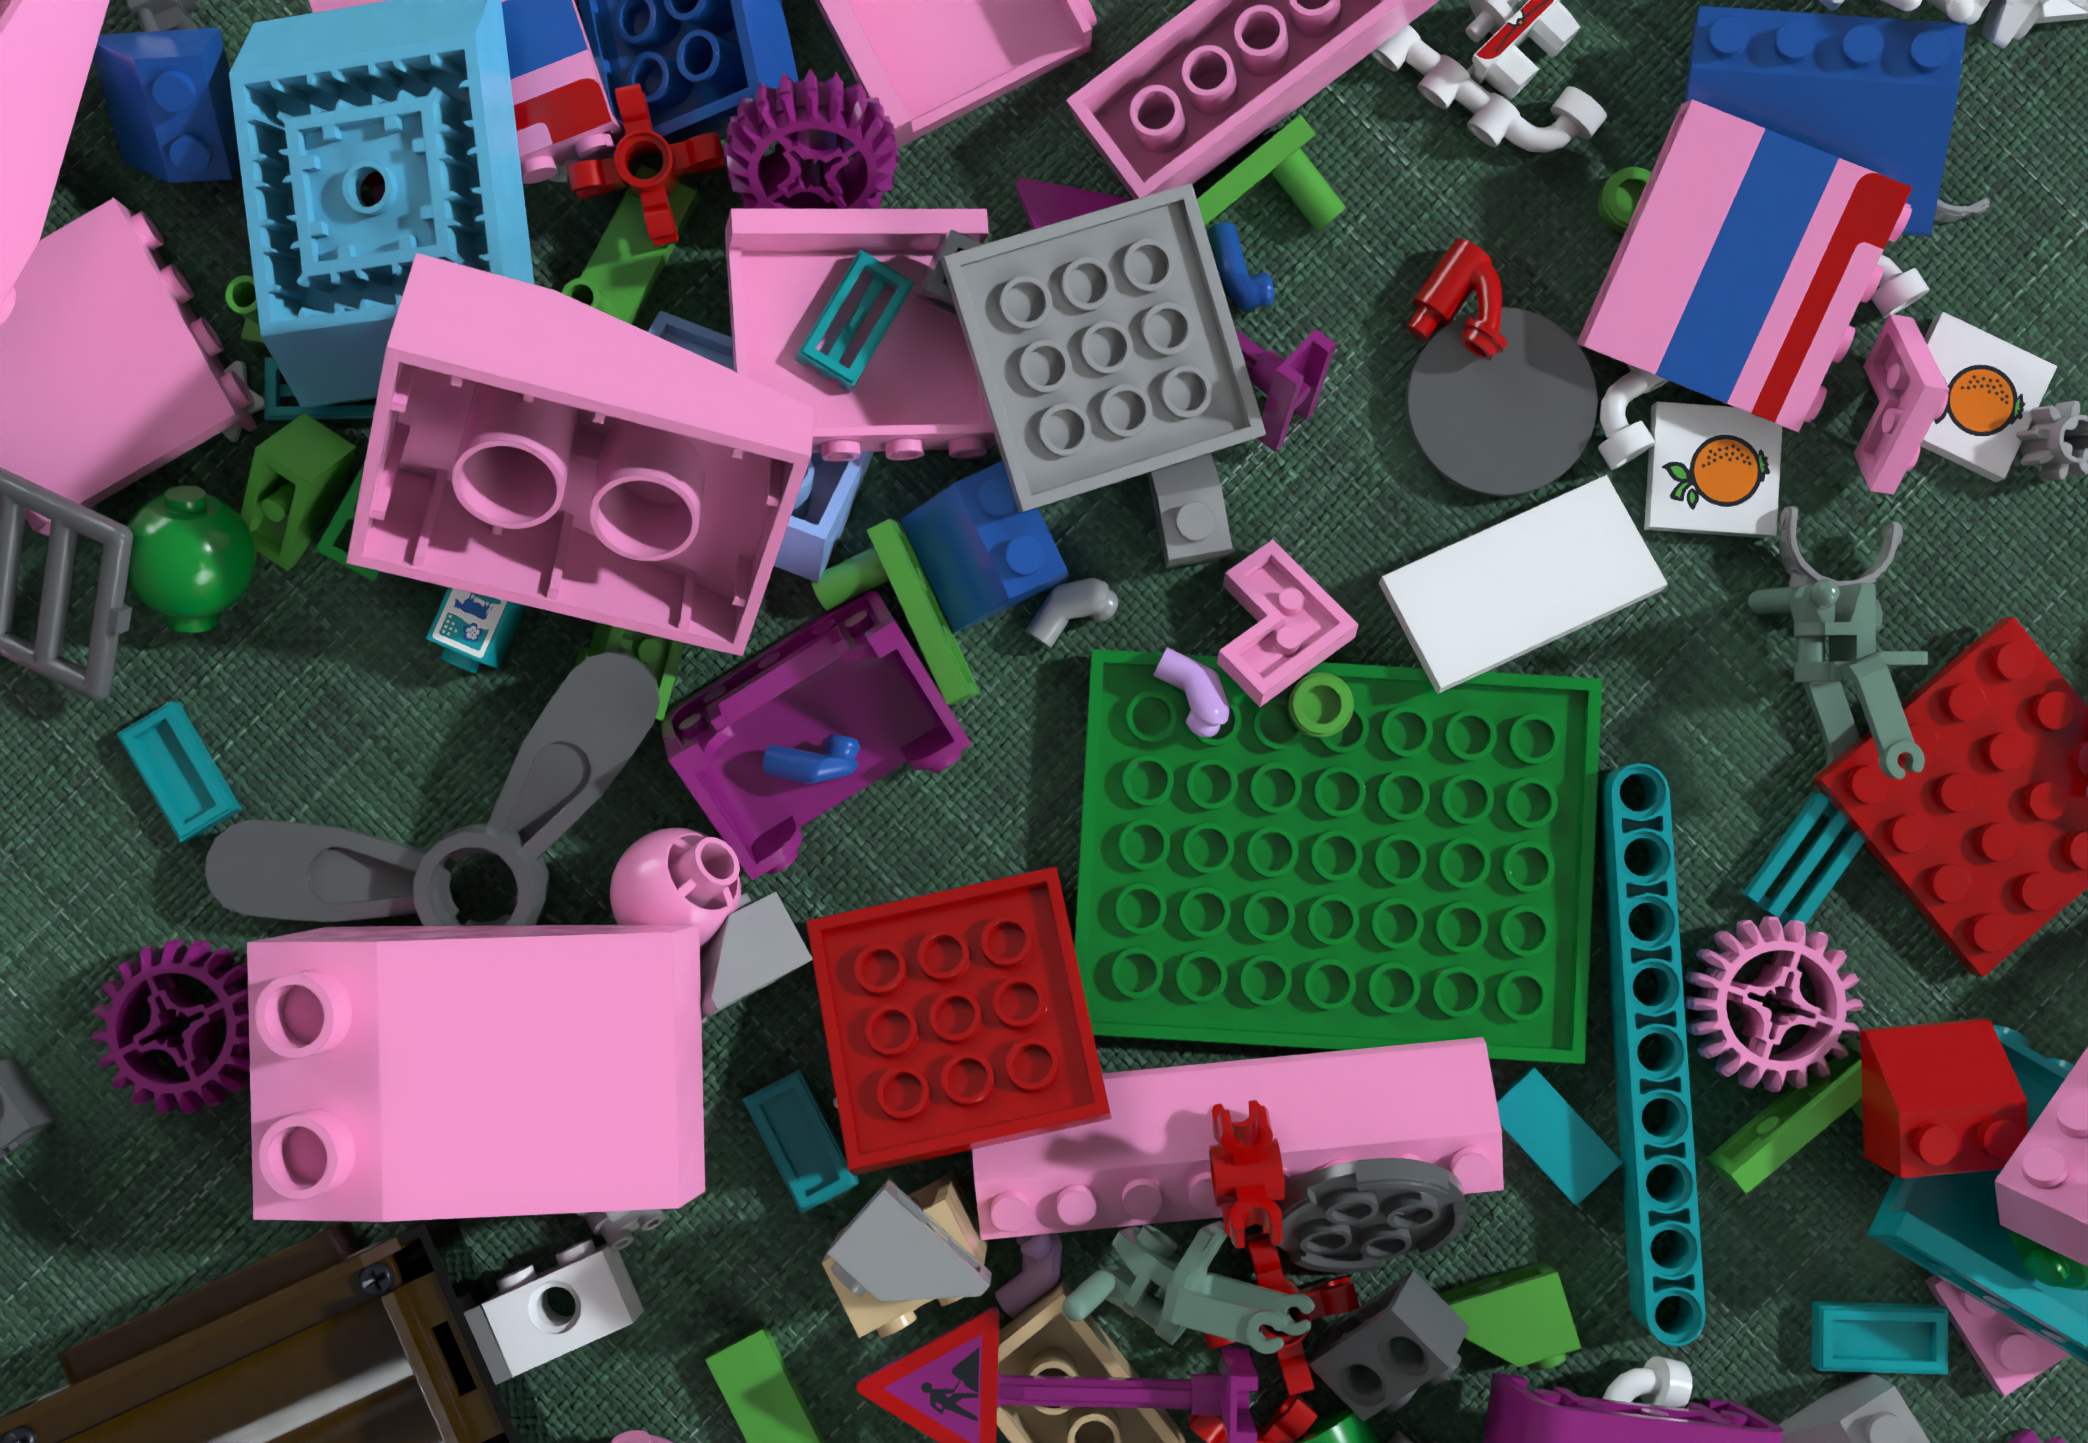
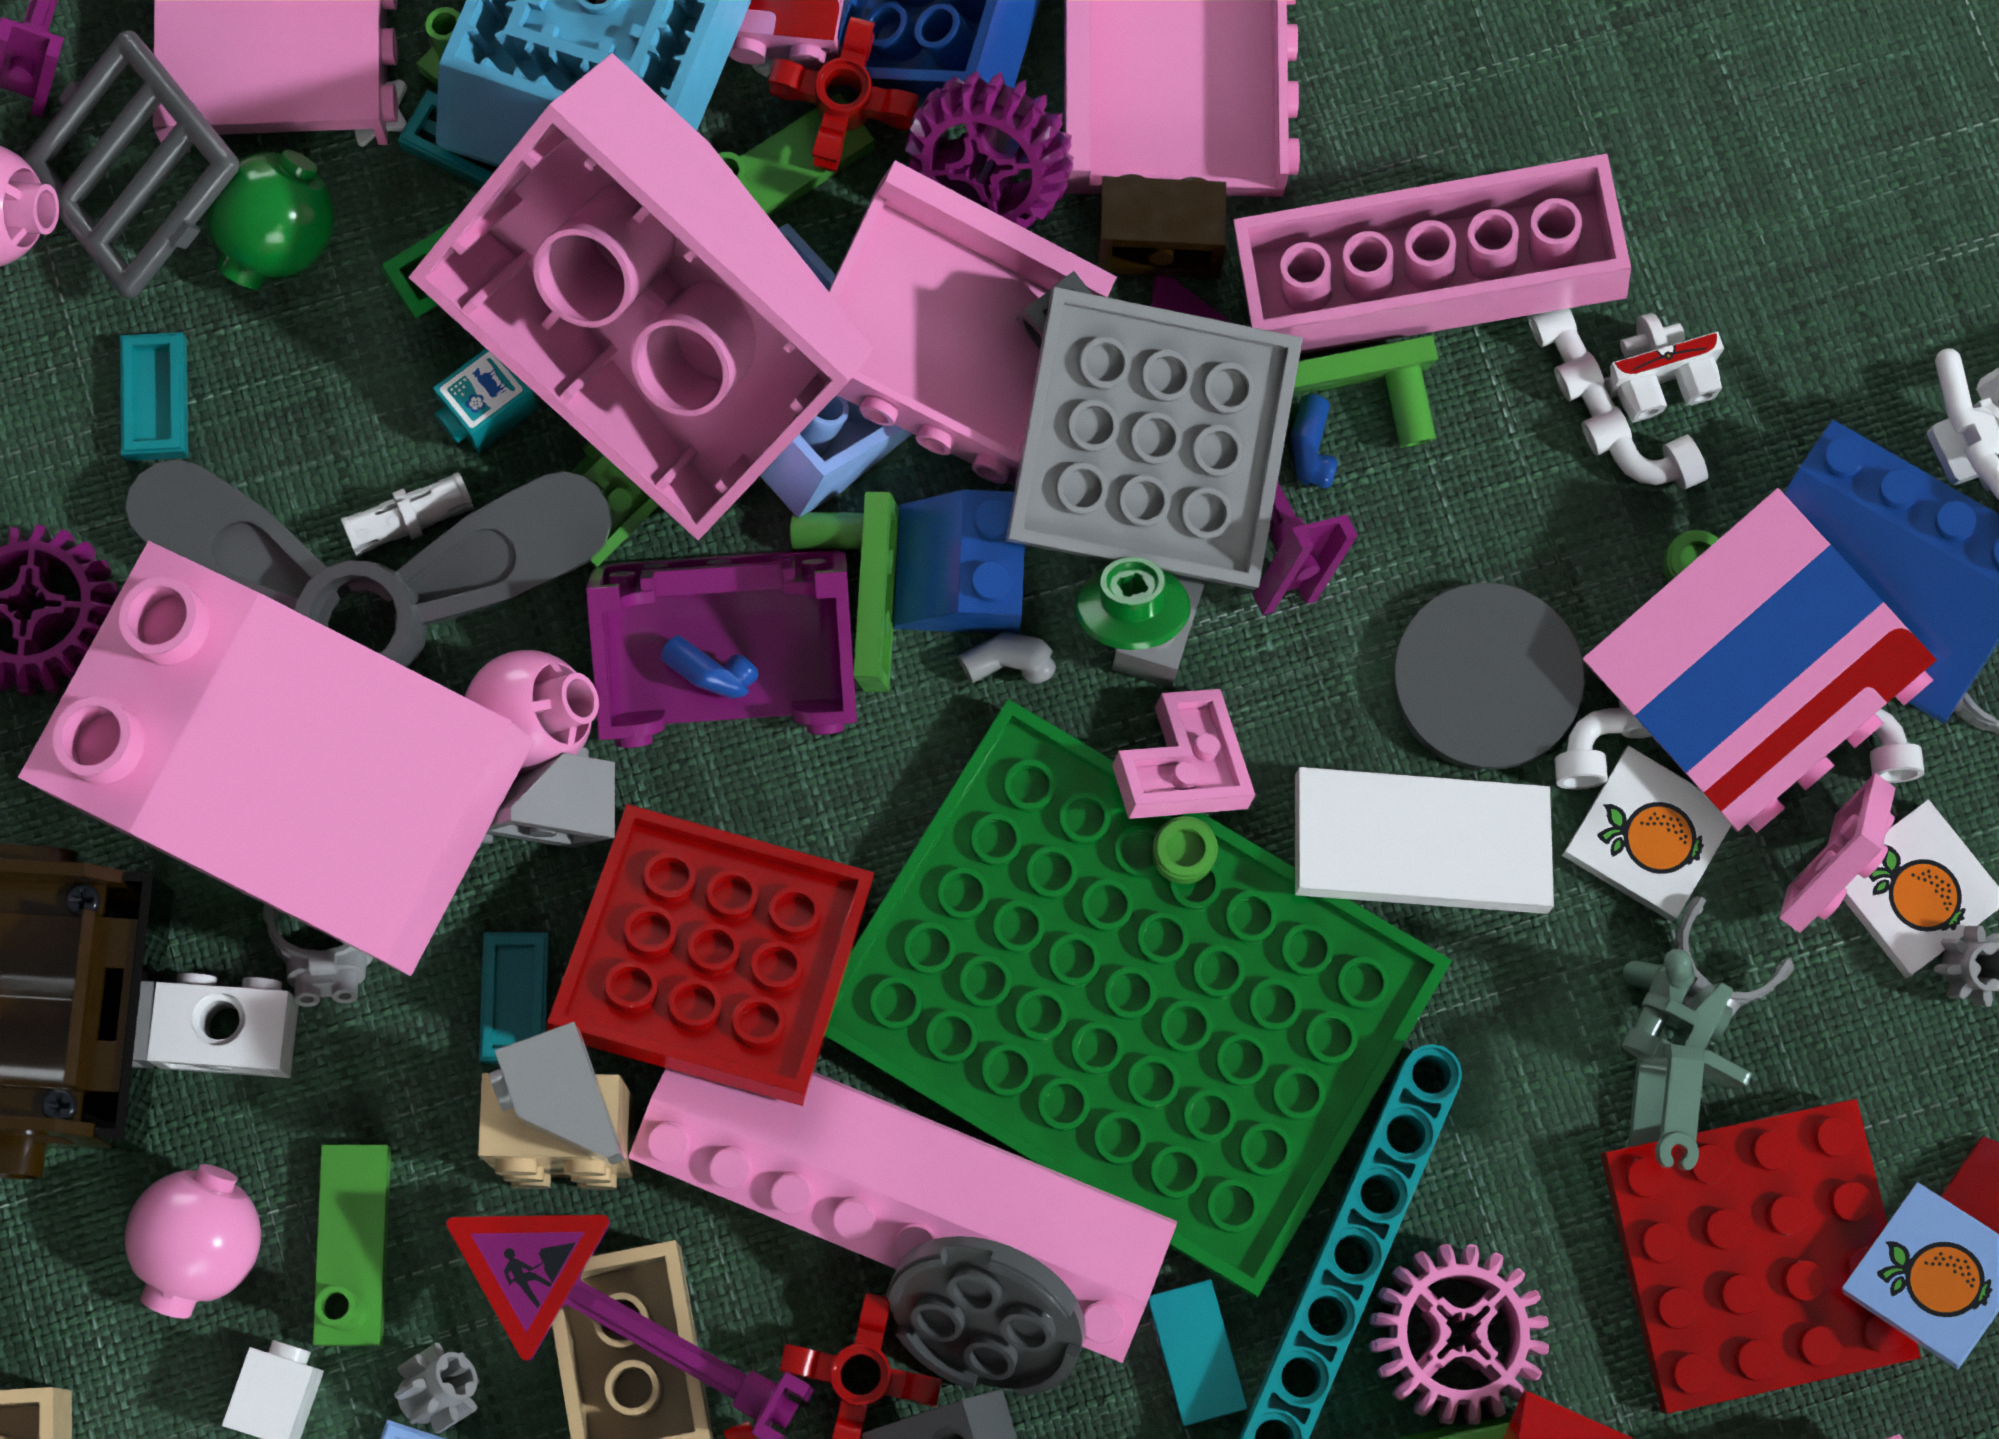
camera: 20 degrees right, 10 degrees down
(294, 487) = (391, 208): bright green slope -> none
(466, 761) = (407, 514): none -> white pin
(828, 364) = (909, 336): teal tile -> none
(1000, 137) = (1162, 226): none -> dark brown brick
(1039, 1273) = (667, 1222): lavender arm -> none
(1174, 530) = (1132, 605): none -> green piece
(1192, 1296) = (778, 1286): sand green piece -> none
(1202, 689) = (1086, 779): lavender arm -> none
(1247, 1173) = (897, 1203): red pin -> none
(1445, 291) = (1490, 553): red plant -> none
(1825, 879) = (1597, 1183): teal tile -> none

